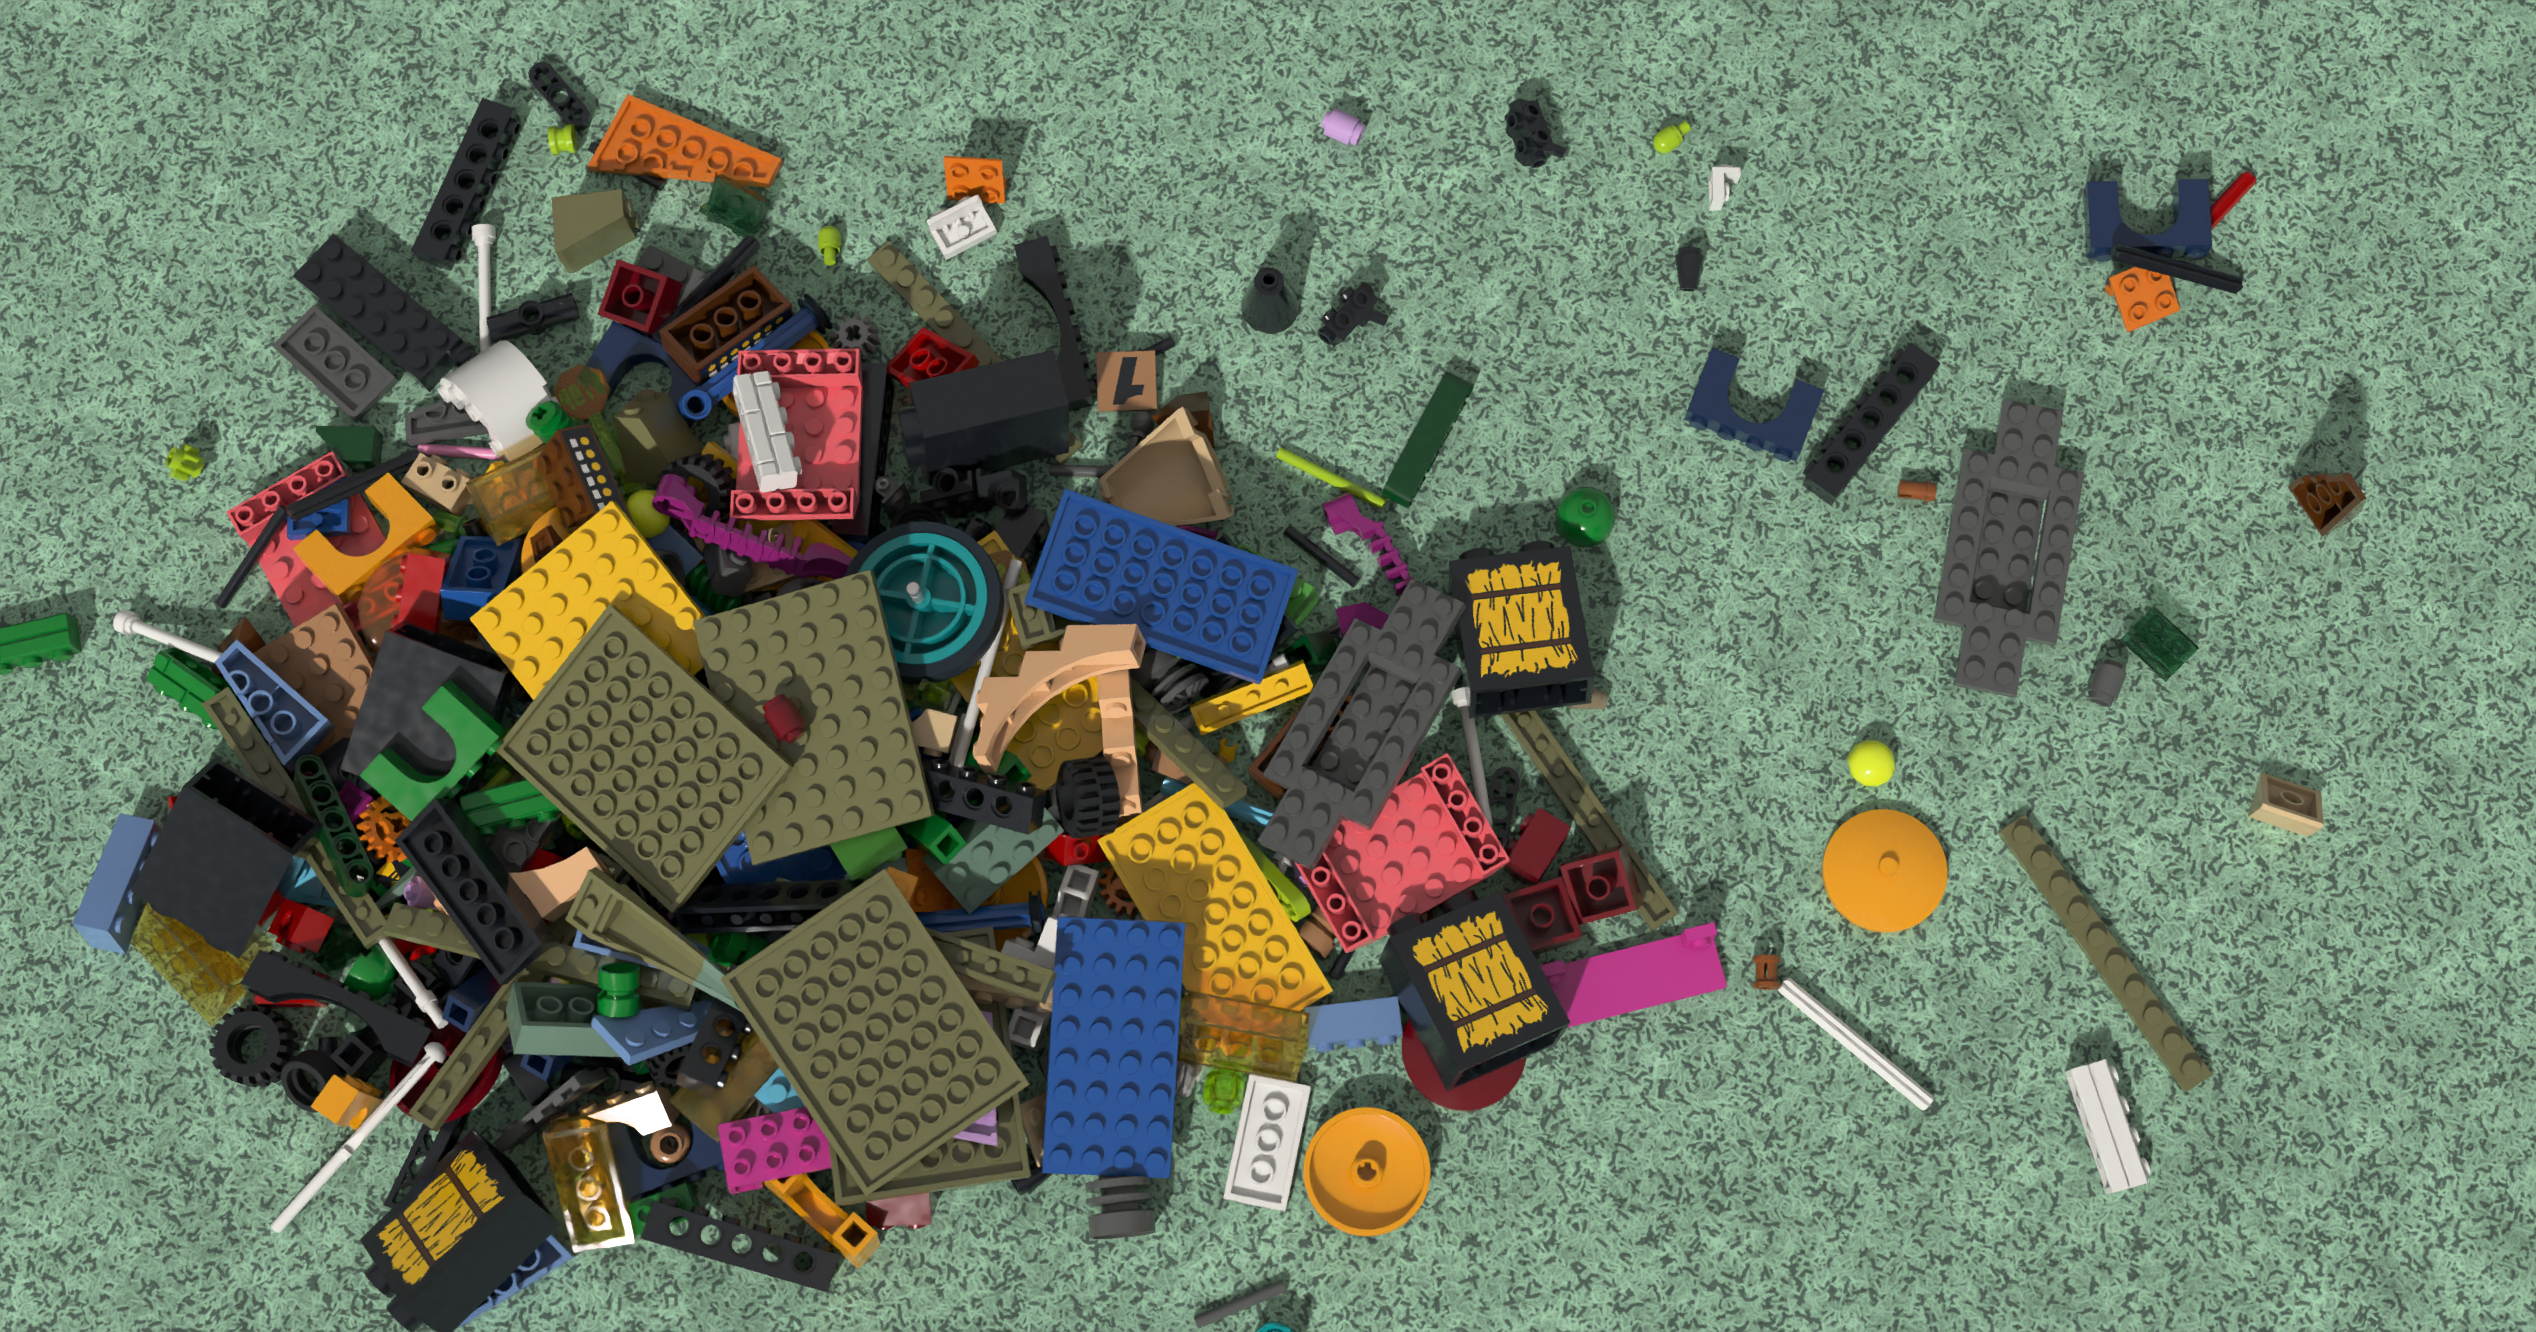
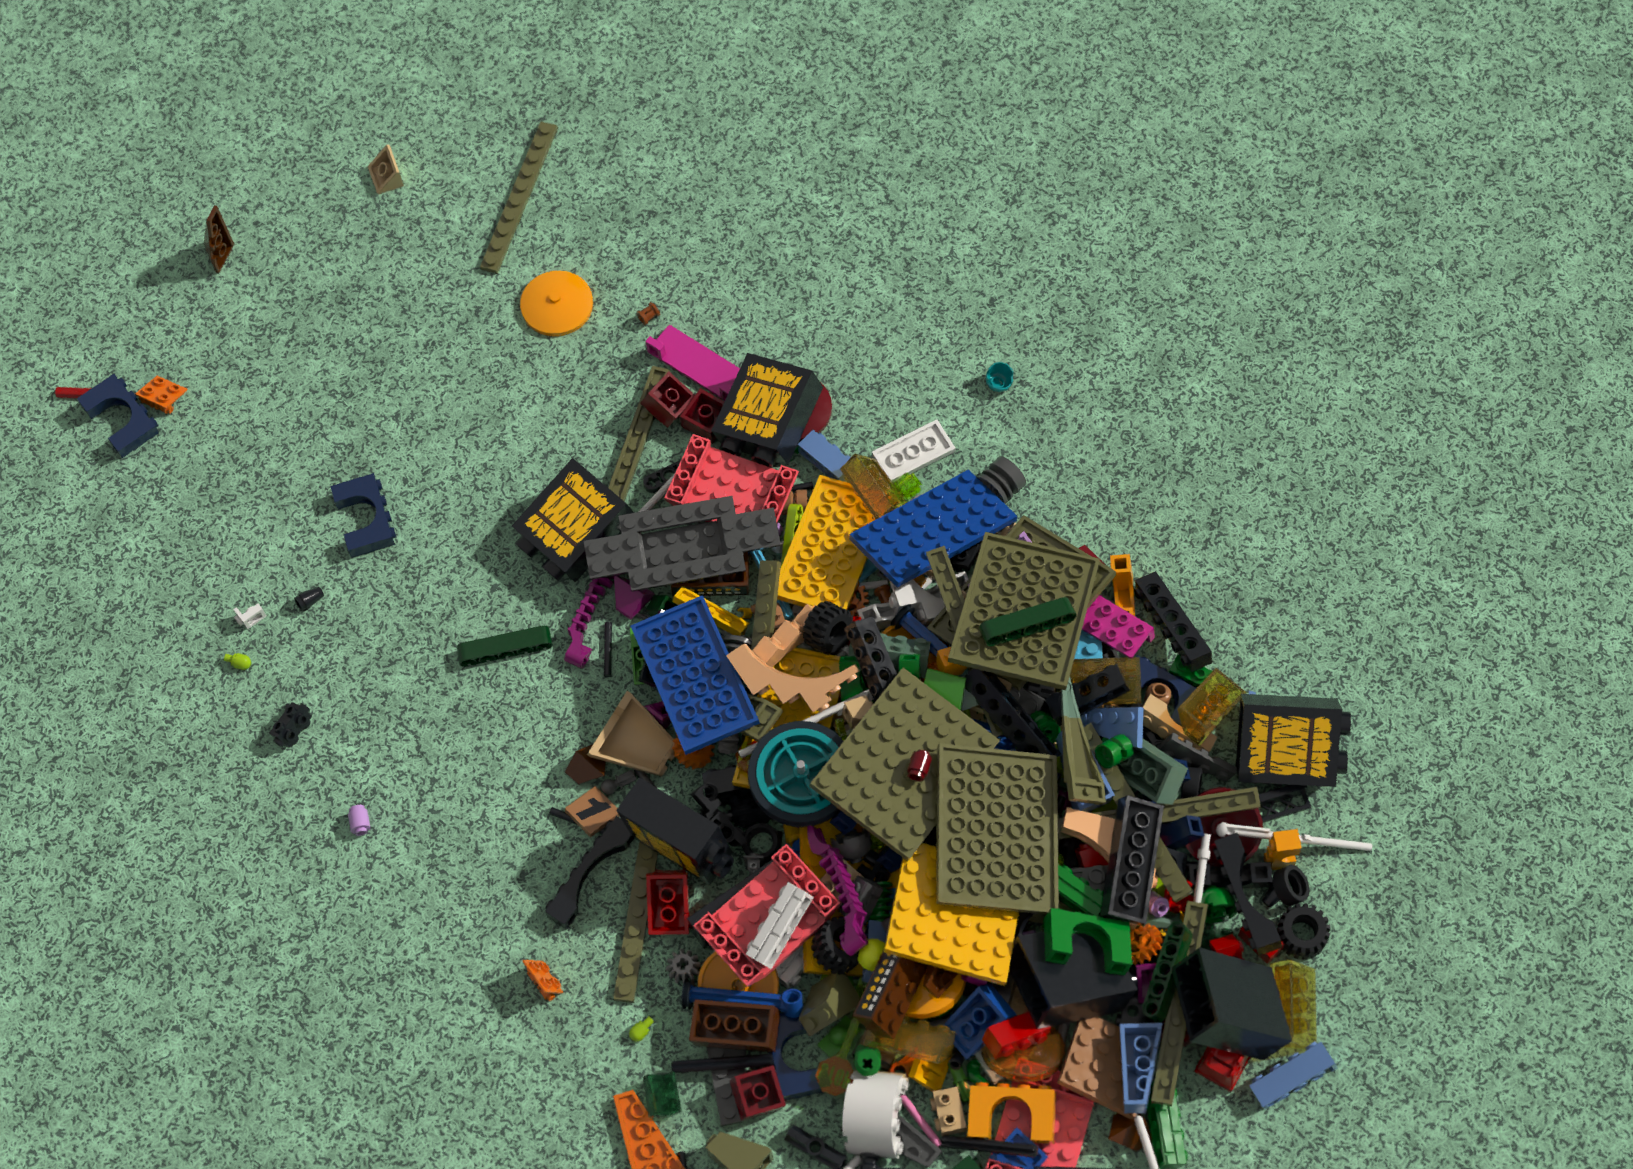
camera: 130 degrees left, 10 degrees down
(844, 1007) = (1027, 621): none -> dark green beam
(961, 226) = (575, 965): white bracket -> none
(1240, 1304) = (994, 409): dark grey bar -> none
(1270, 302) = (490, 777): black cone -> none
(1330, 478) = (562, 677): lime bar -> none
(1354, 310) = (466, 732): black brick -> none
(1366, 1171) = (888, 398): light orange dish -> none
(1535, 850) = (672, 438): dark red brick -> none
(1585, 517) = (485, 547): green cylinder -> none
(1856, 1044) = (649, 257): white axle -> none
(1871, 763) = (507, 343): neon yellow hair -> none
(1917, 490) = (347, 413): dark orange pin -> none
(1919, 369) = (322, 453): black brick -> none
(1995, 547) = (353, 366): dark grey piece -> none
(2106, 683) = (385, 276): dark grey brick -> none
(2107, 1126) = (600, 142): white brick -> none
(2159, 643) = (347, 268): clear green bracket -> none
(2176, 268) = (138, 382): black axle -> none

